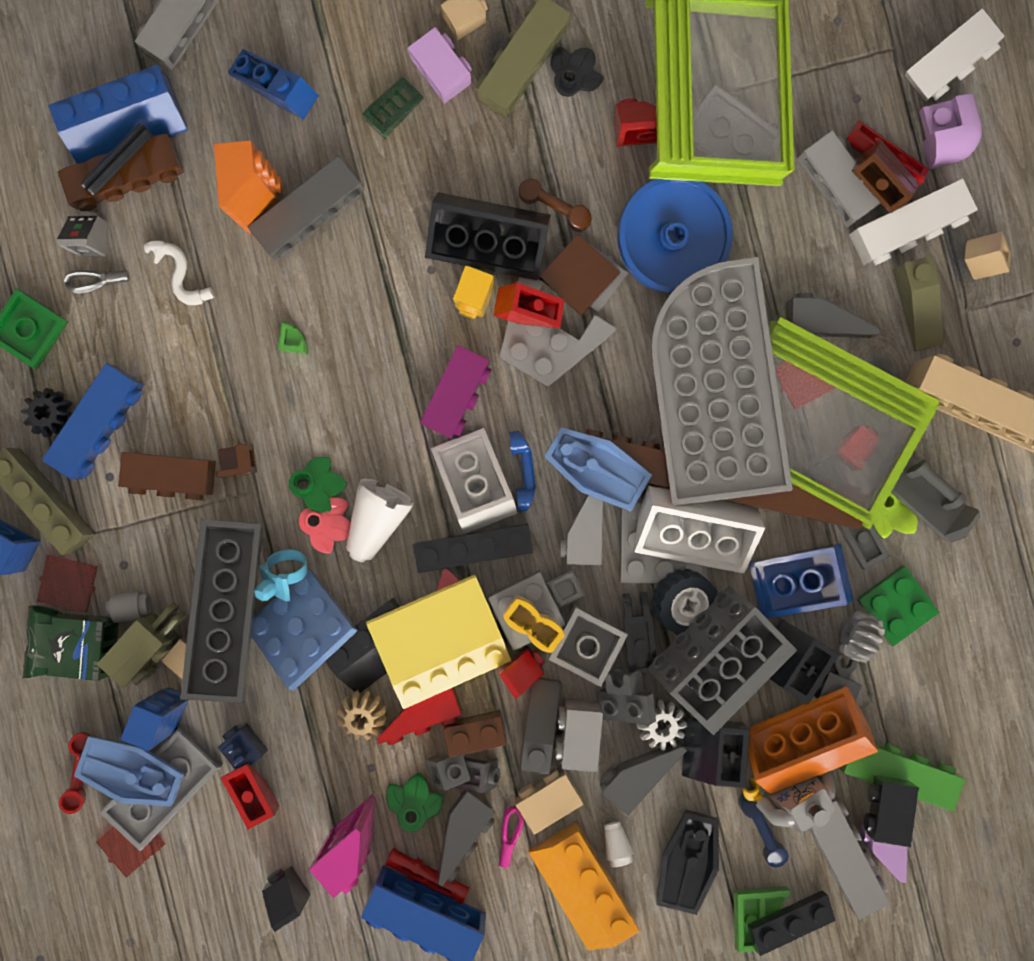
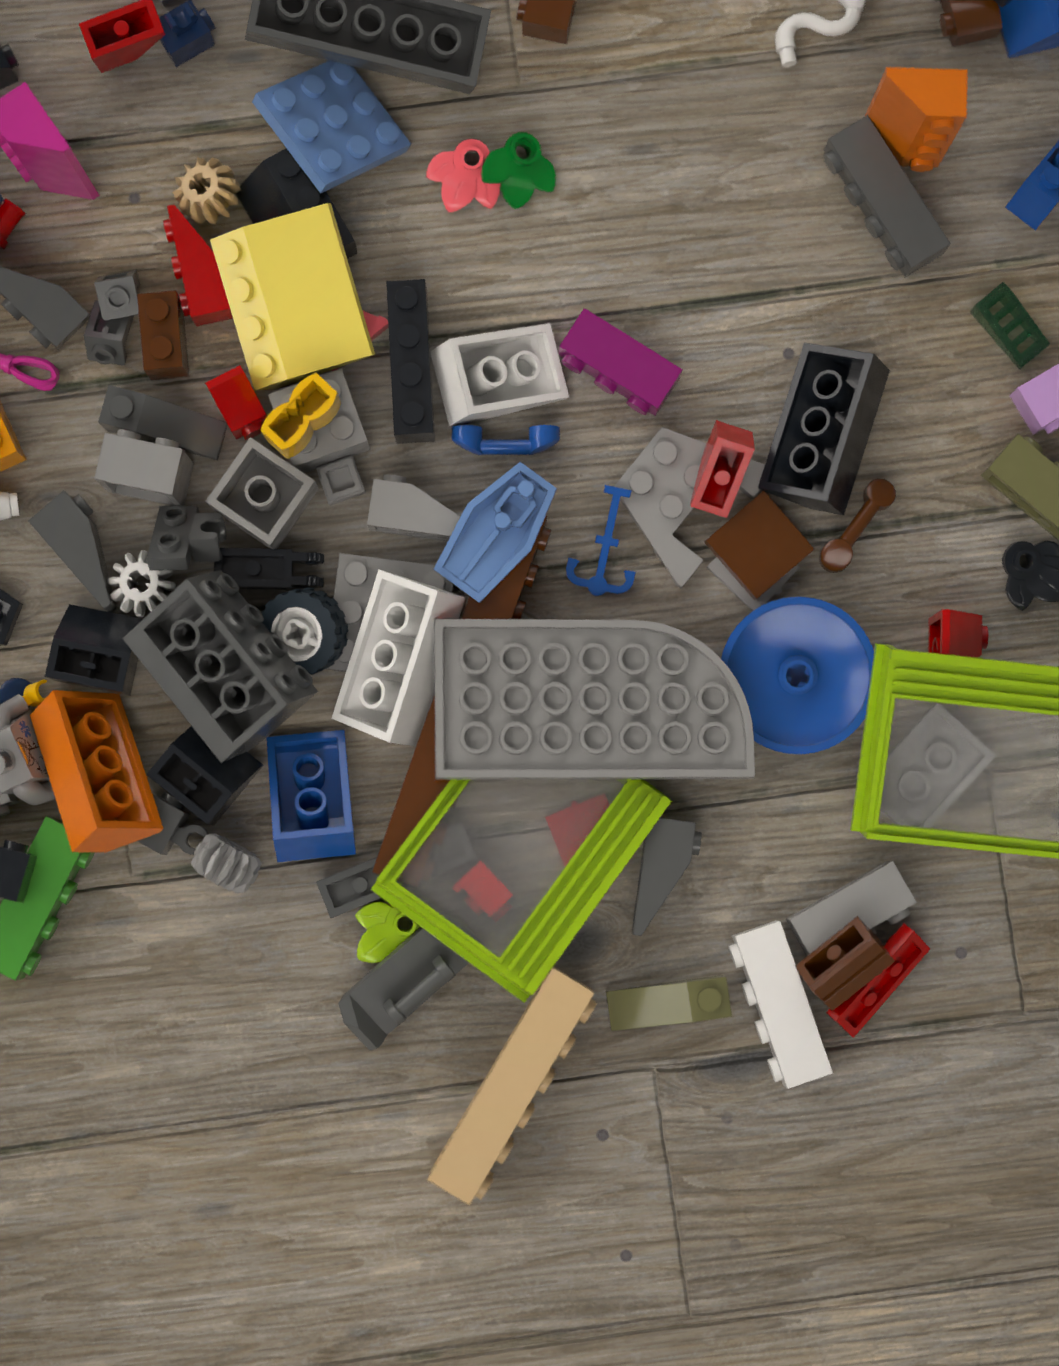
camera: 90 degrees right, 5 degrees down
(237, 460) = (562, 70): reddish brown panel -> none
(278, 585) = (393, 101): medium azure piece -> none
(292, 339) = (715, 160): bright green tile -> none
(375, 518) = (466, 237): white cone -> none
(413, 798) = (87, 247): green plate -> none
(473, 292) = (747, 397): yellow brick -> none
(548, 800) = (61, 422): tan brick -> none
(620, 390) = (598, 584): none -> blue piece
(899, 604) = (261, 925): green plate -> none
(951, 130) = (902, 1073): lavender brick -> none
(955, 56) = (1000, 1084): white wedge -> none
(987, 256) = (724, 1102): tan panel -> none

